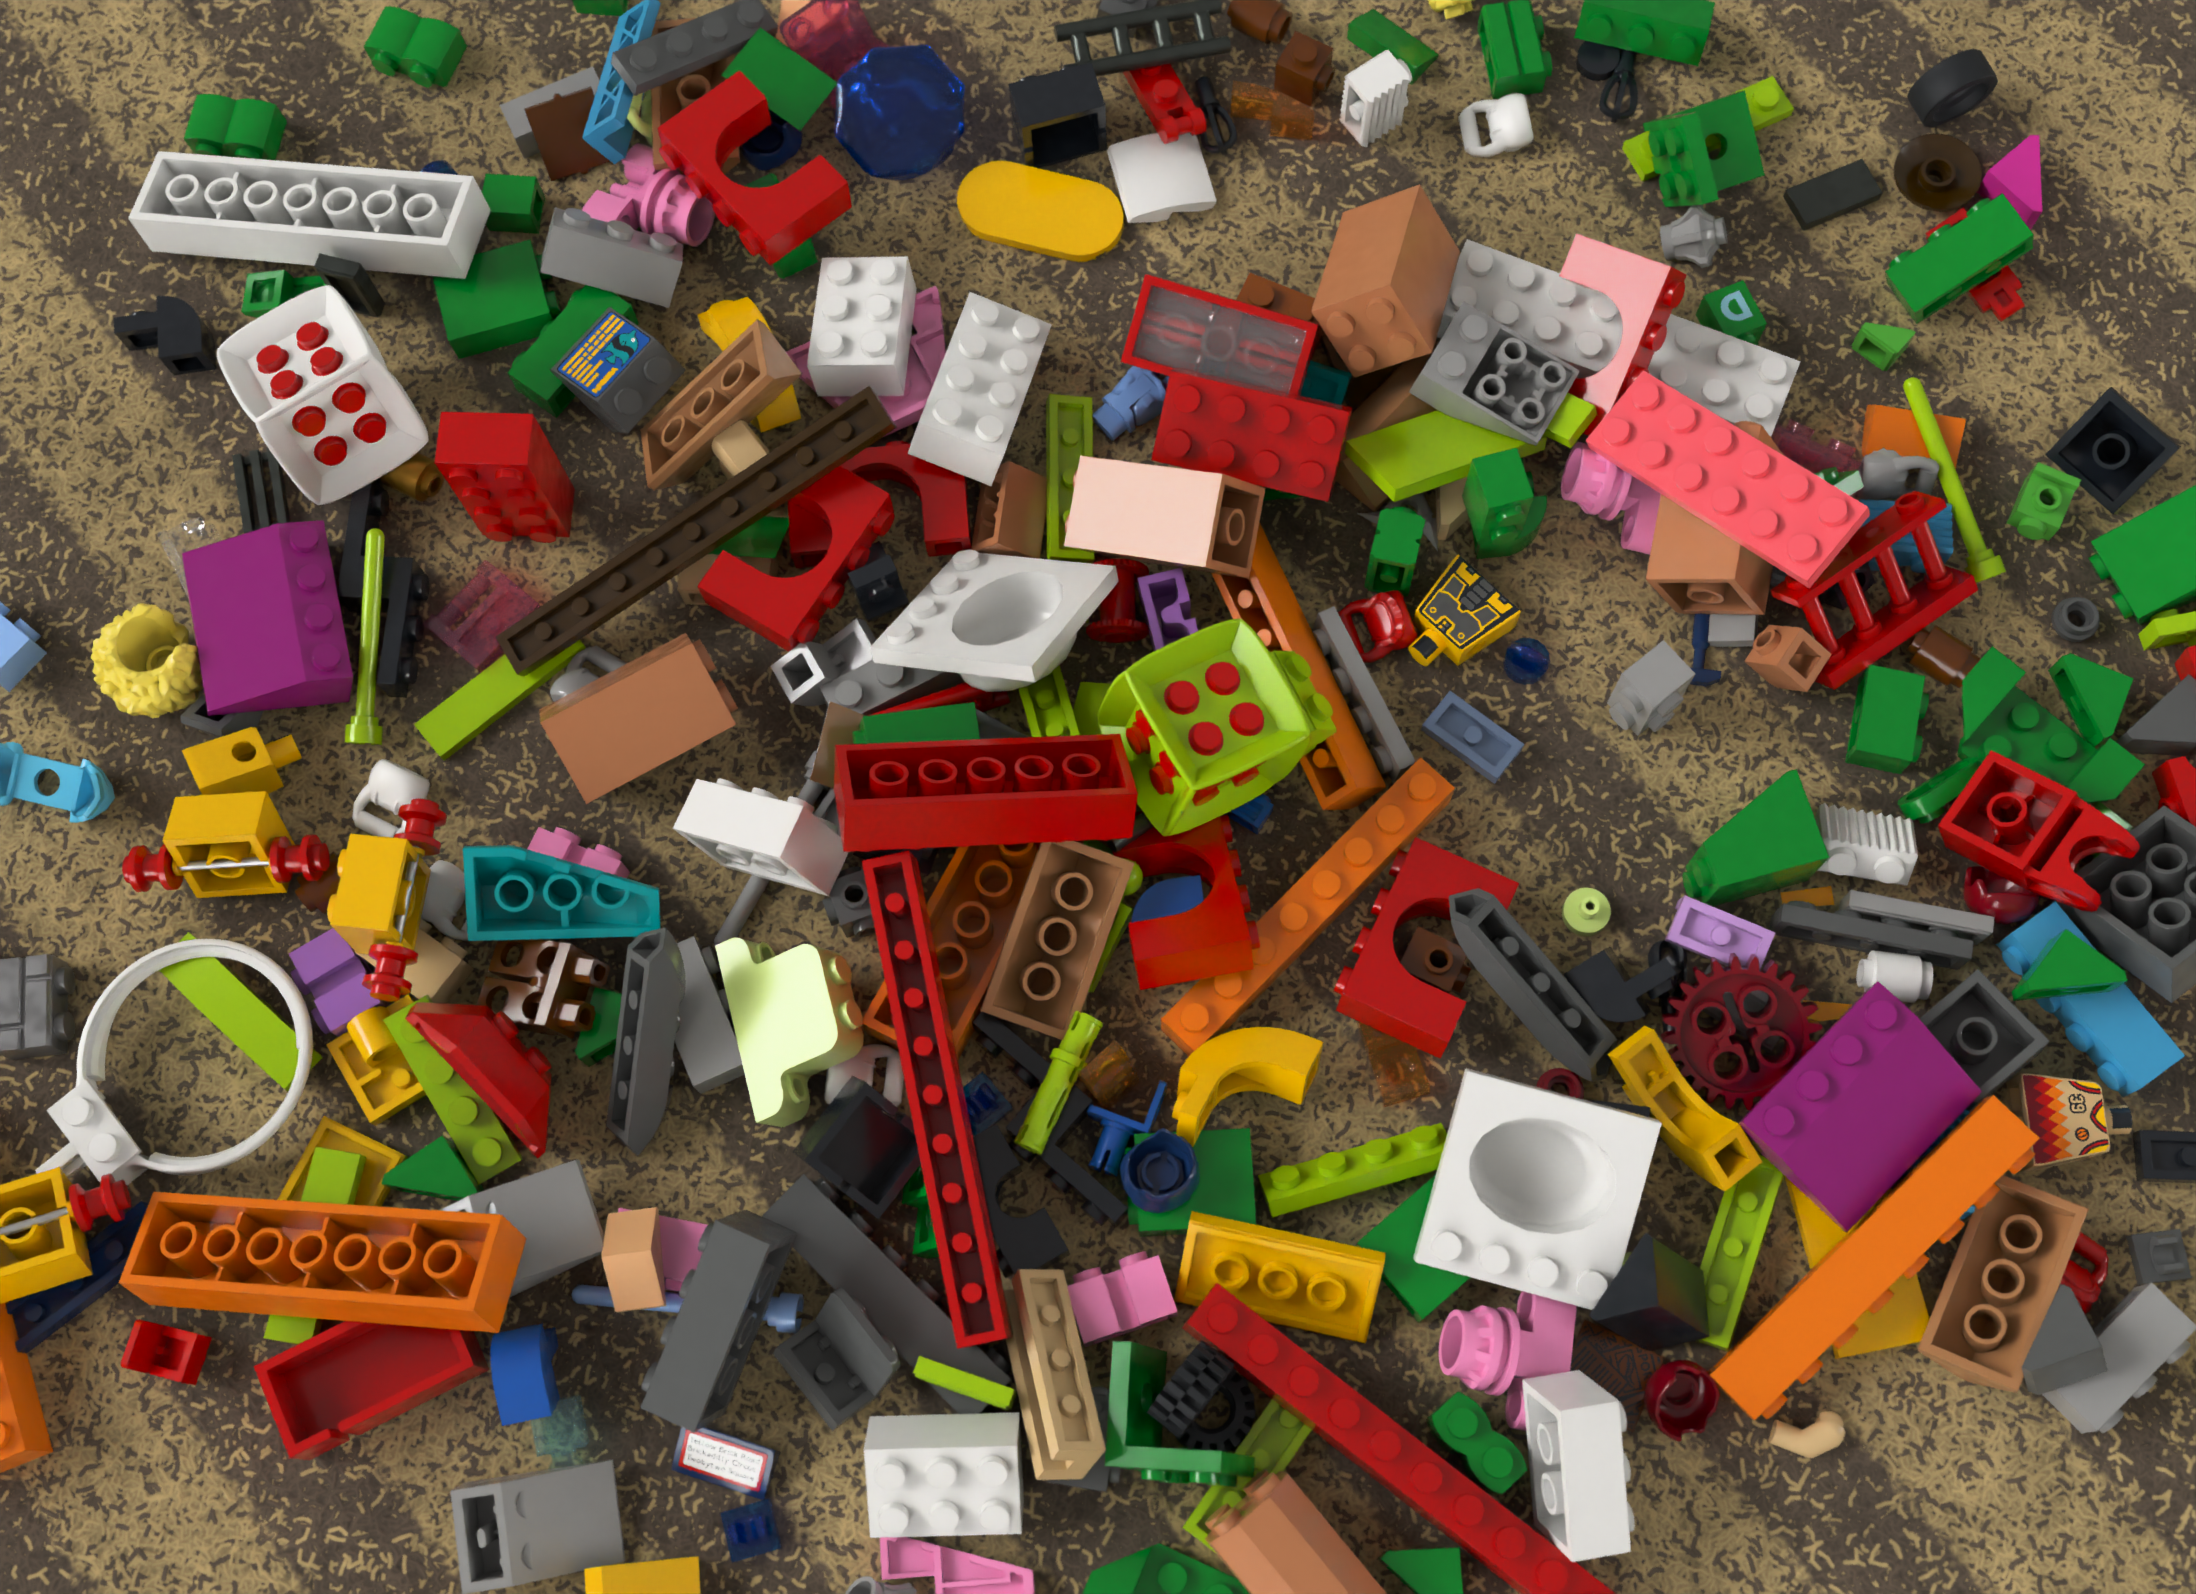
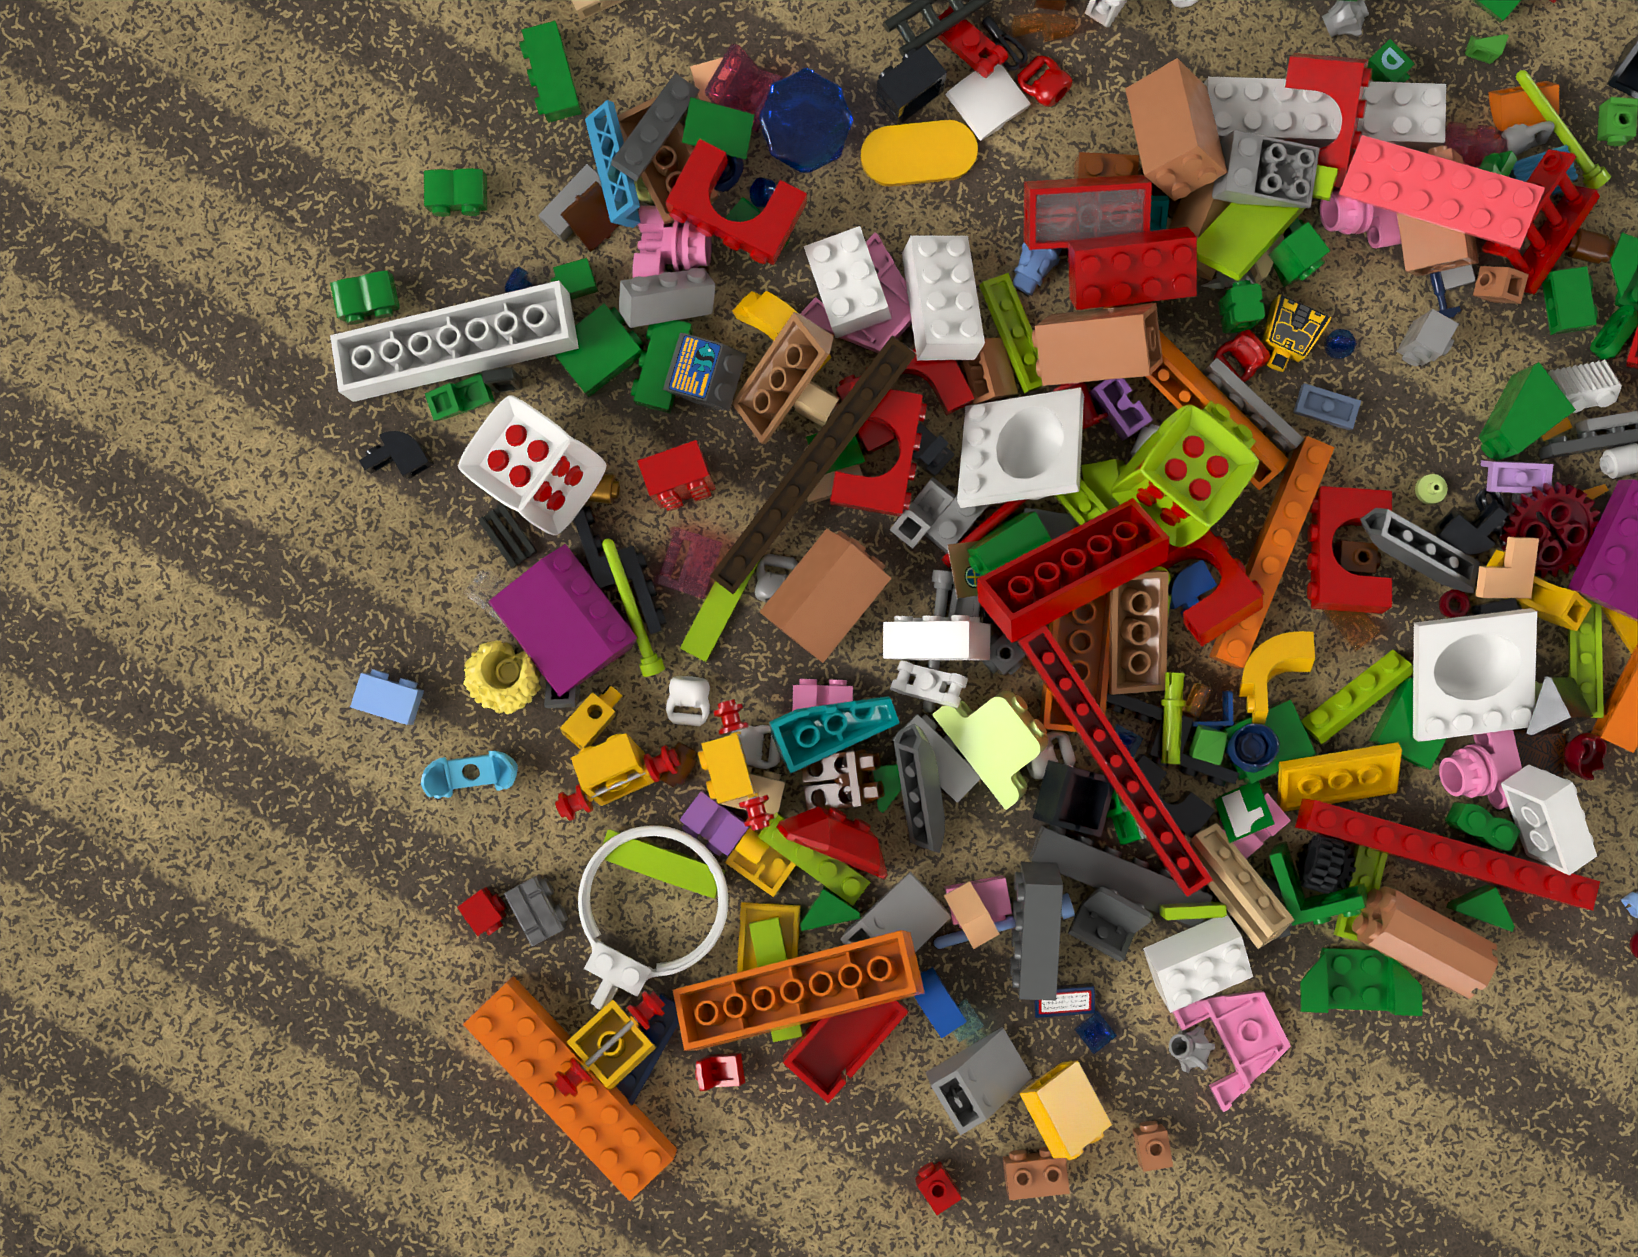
camera: 25 degrees left, 15 degrees up
(732, 903) = (929, 684): none -> white plate
(1096, 1143) = (1208, 744): none -> bright green slope
(1109, 1267) = (1244, 811): none -> sticker
(1250, 189) = (1050, 86): none -> red piece
(1658, 1072) = (1516, 576): none -> light nougat tile

